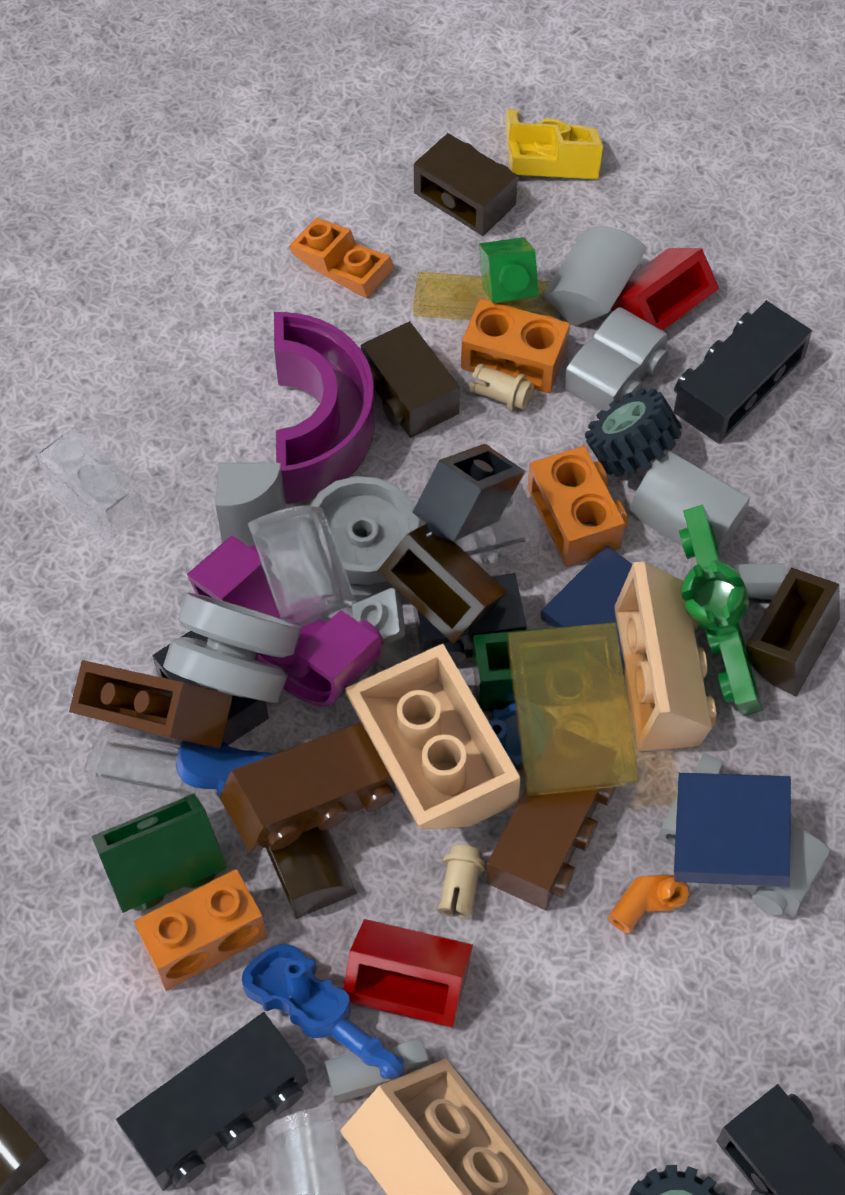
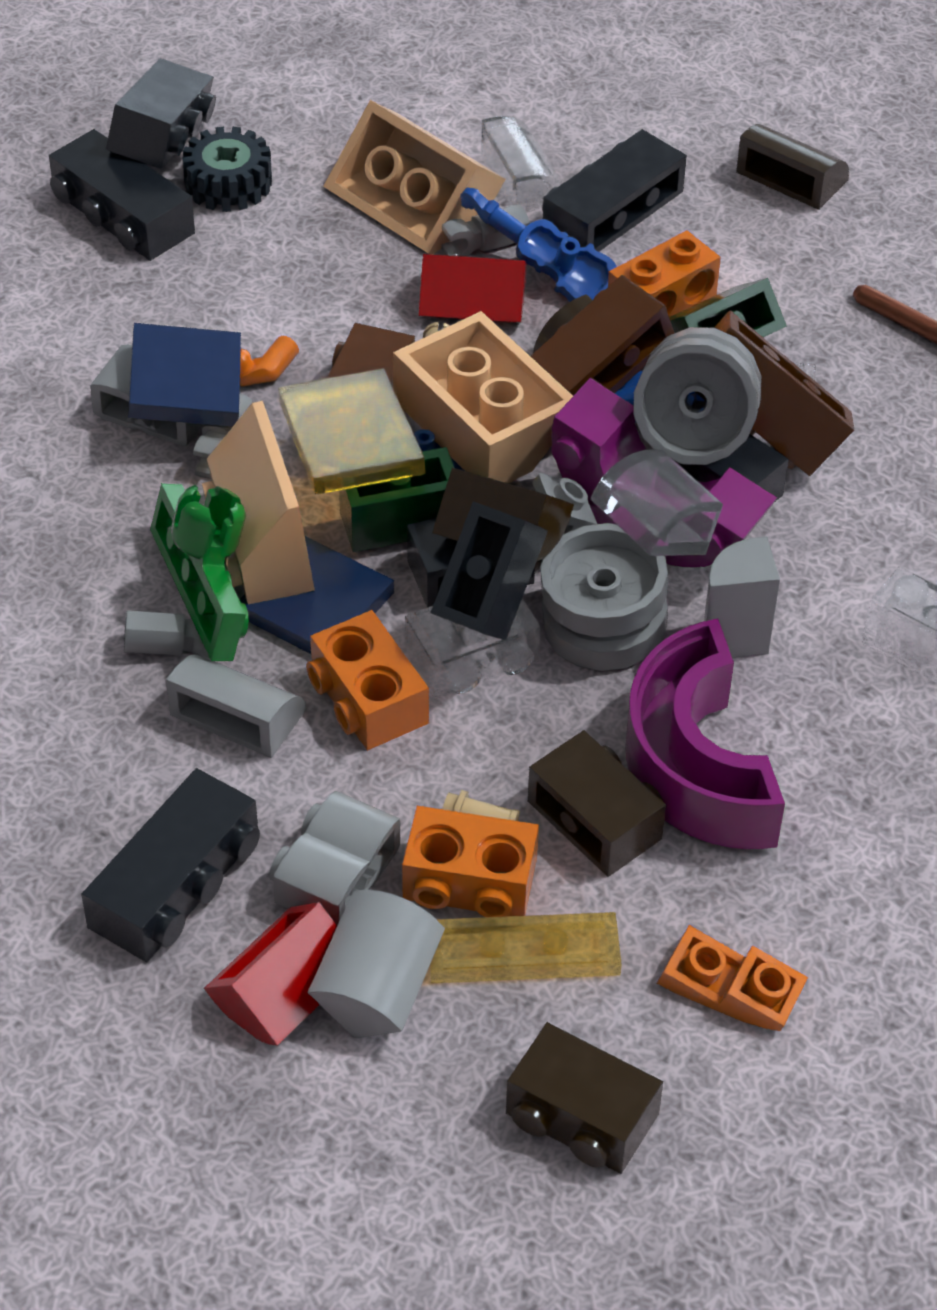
camera: 170 degrees right, 10 degrees down
(508, 269) = (494, 913): green brick -> none
(552, 148) = (471, 1205): yellow slope -> none
(633, 432) = (330, 751): black wheel -> none
(794, 630) = (113, 575): dark brown brick -> none

